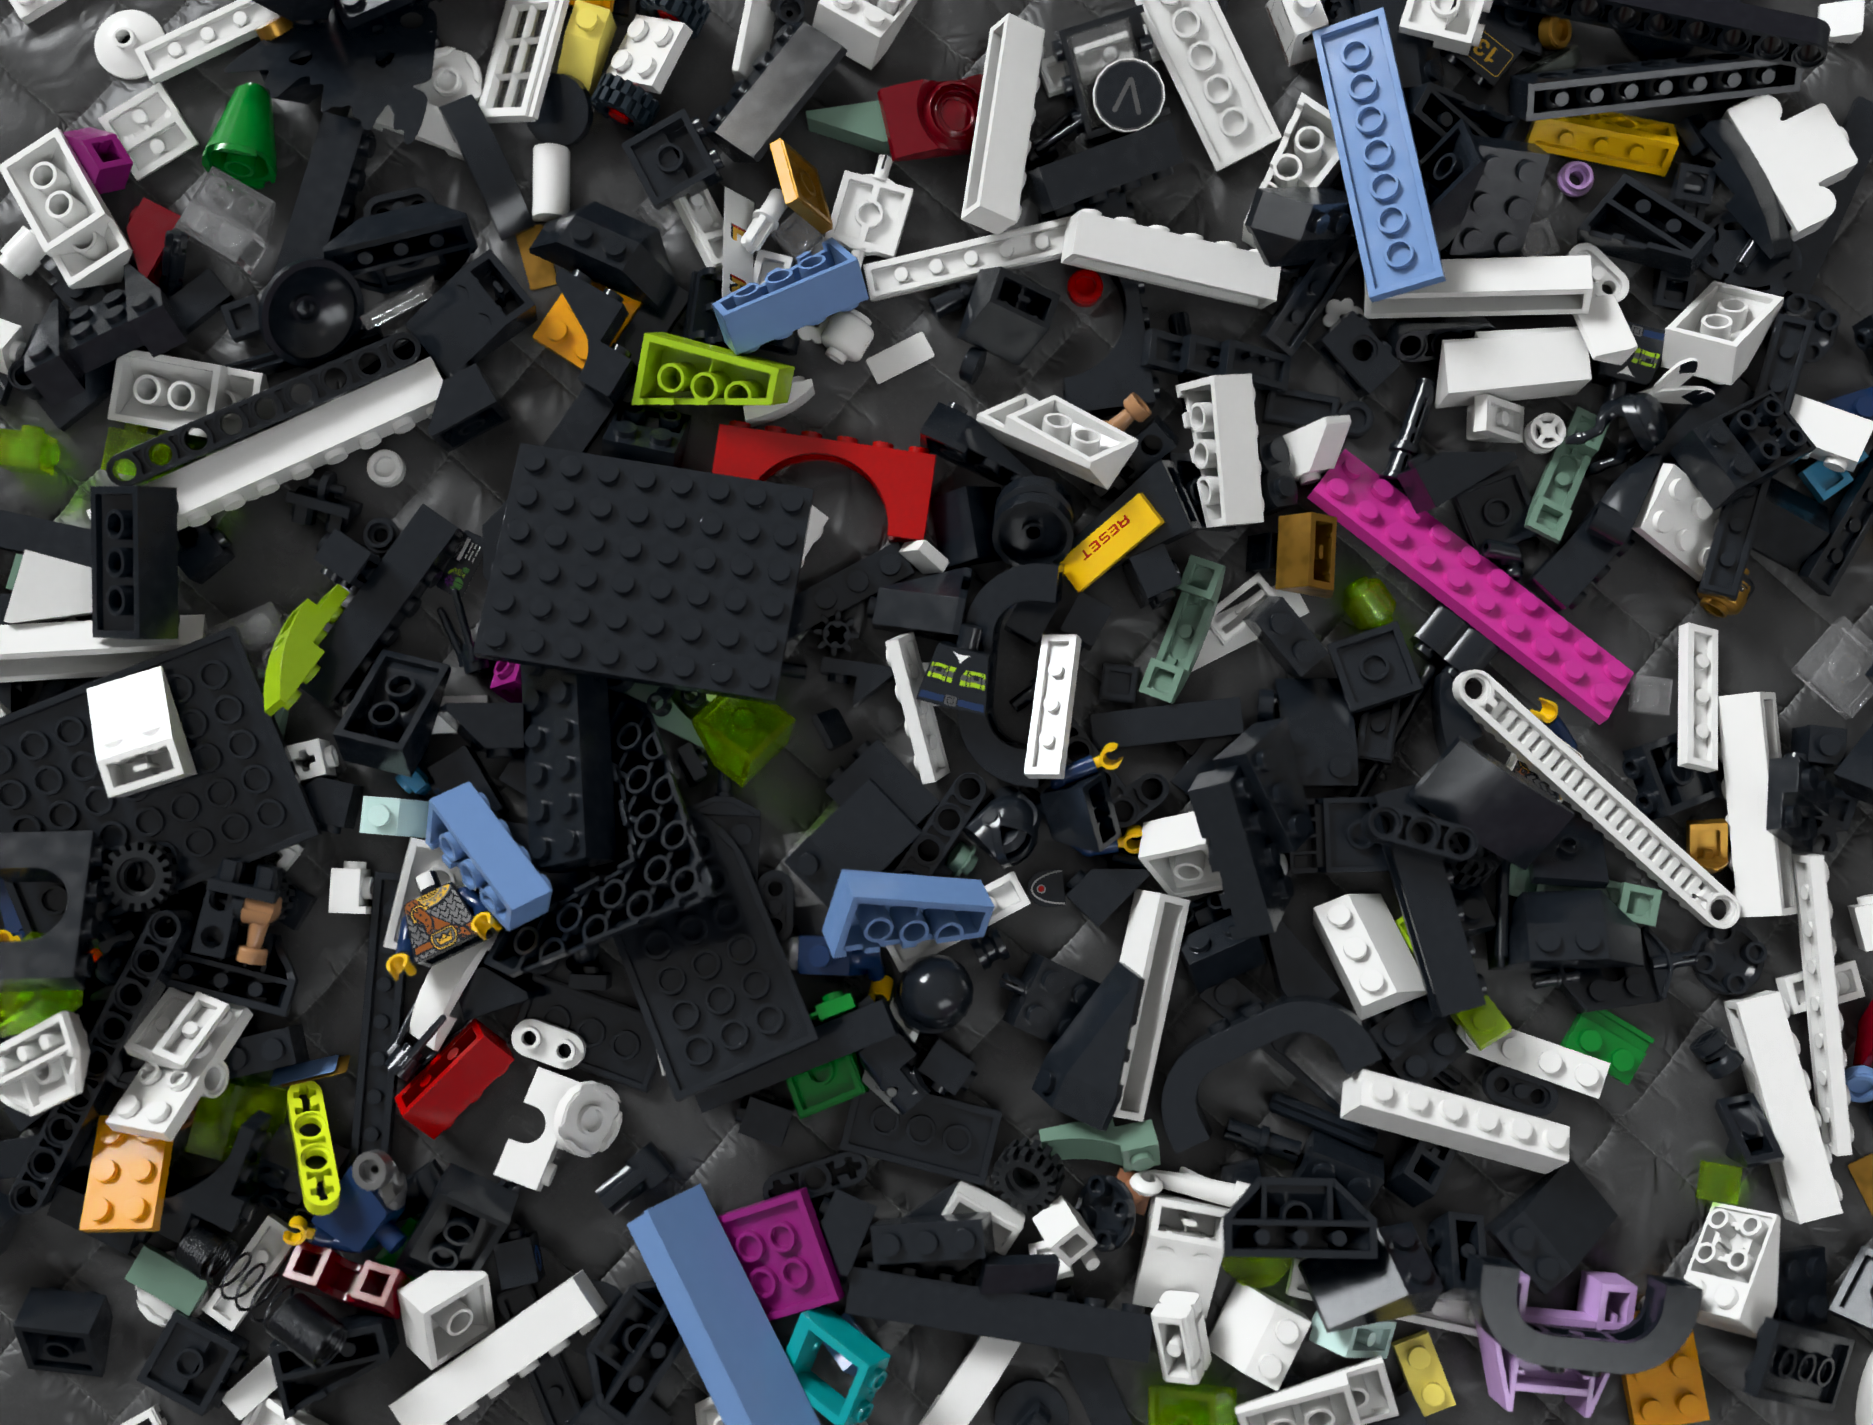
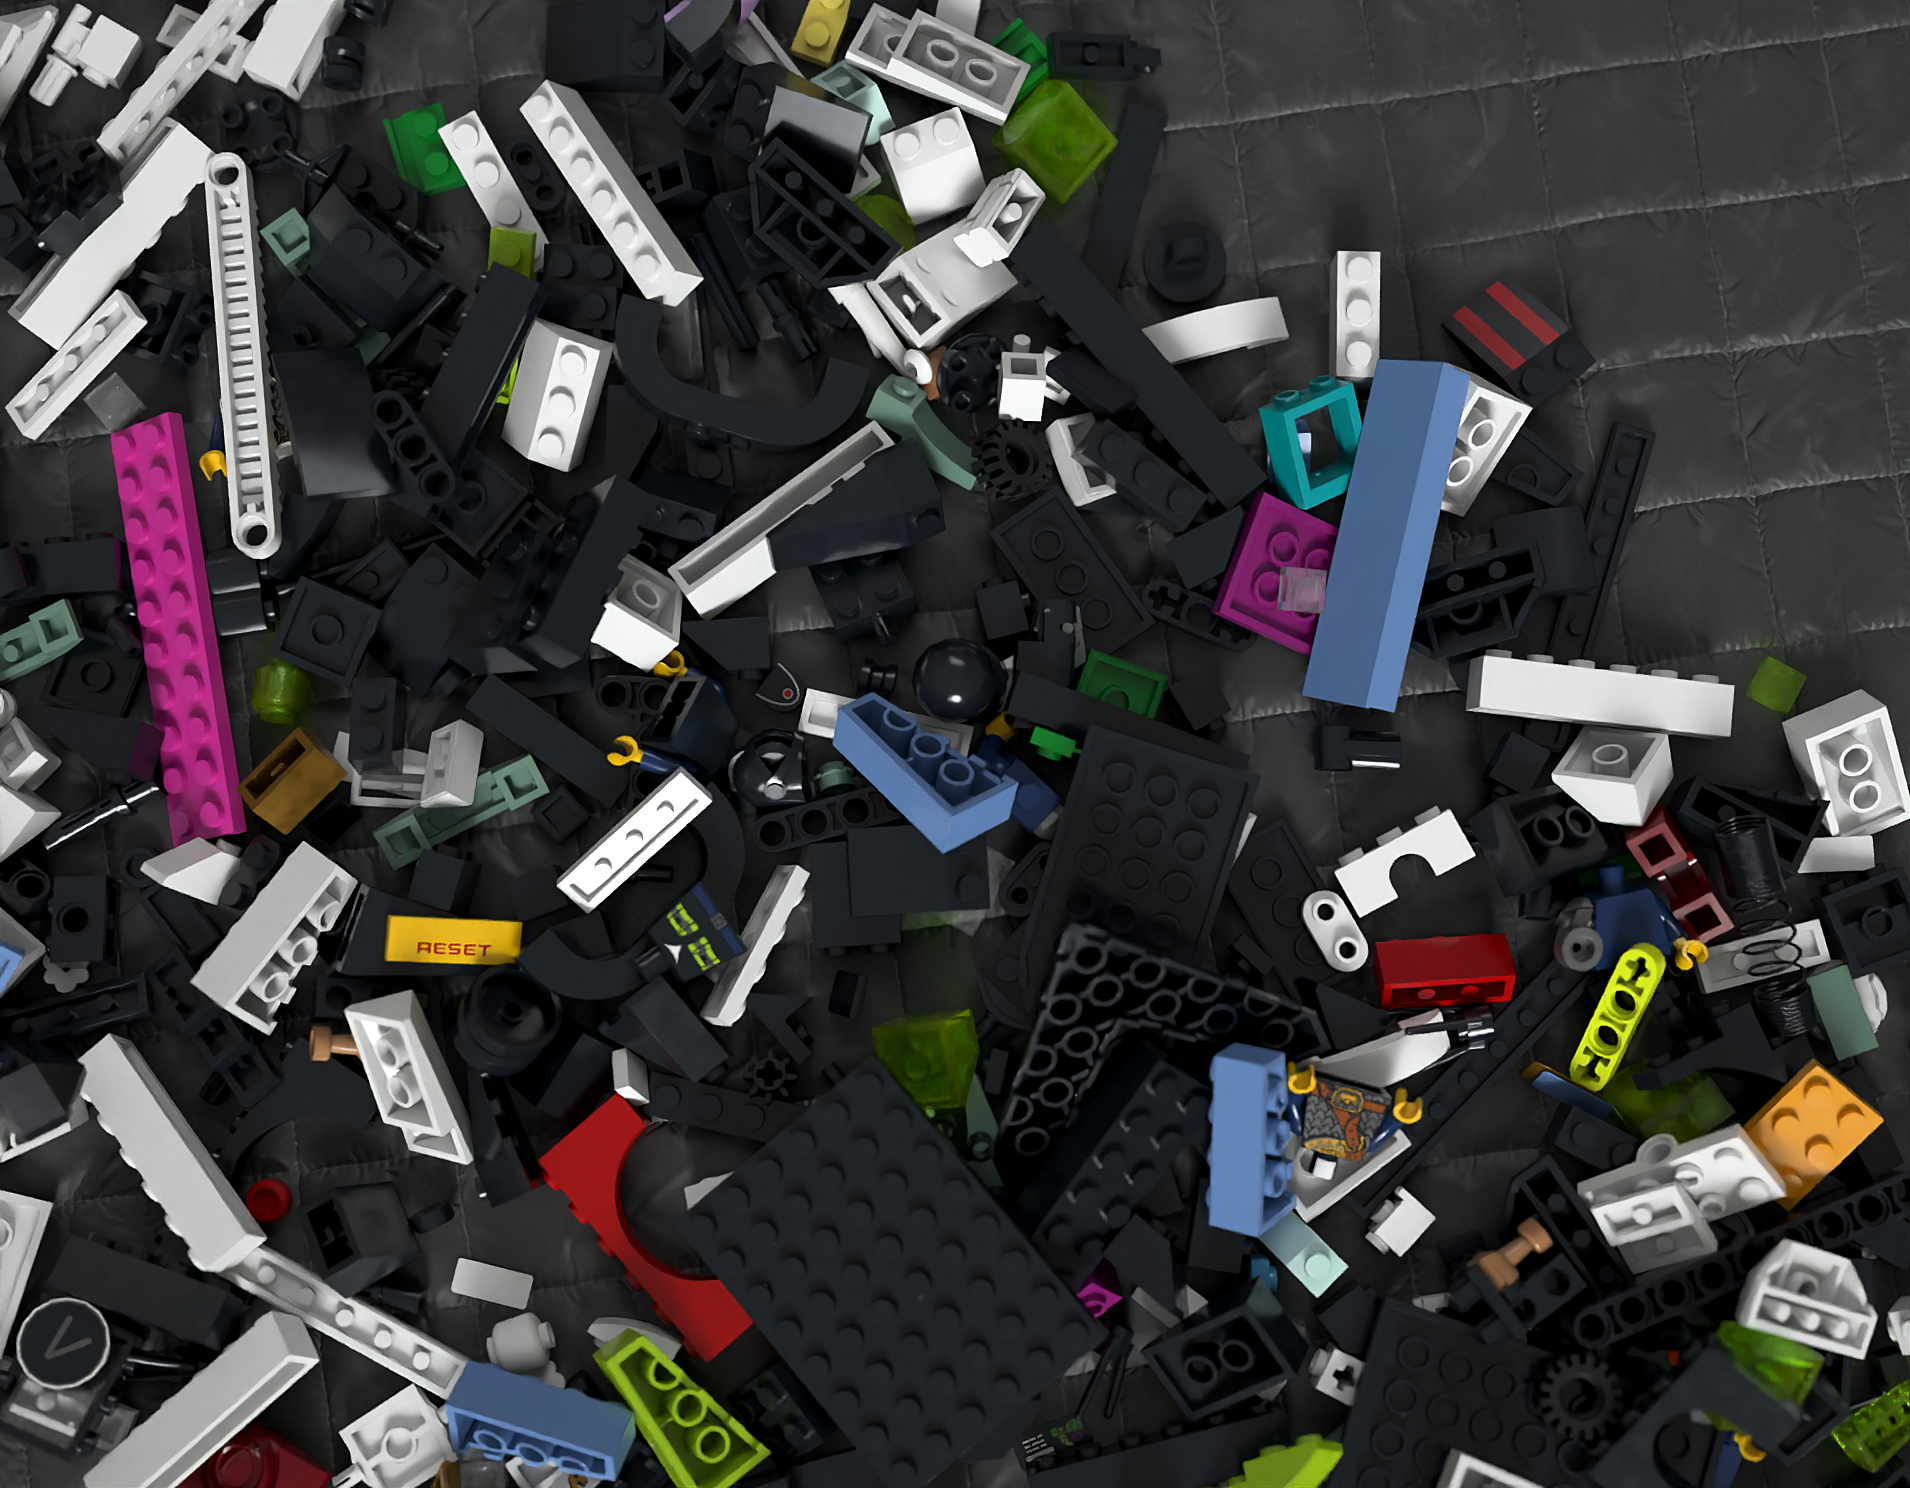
camera: 135 degrees left, 0 degrees up
(587, 1119) = (1353, 834): white tile -> none
(758, 1255) = (1302, 590): none -> clear plate
(1215, 652) = (452, 766): none -> white slope
(1708, 843) = (184, 238): pearl gold plate -> none

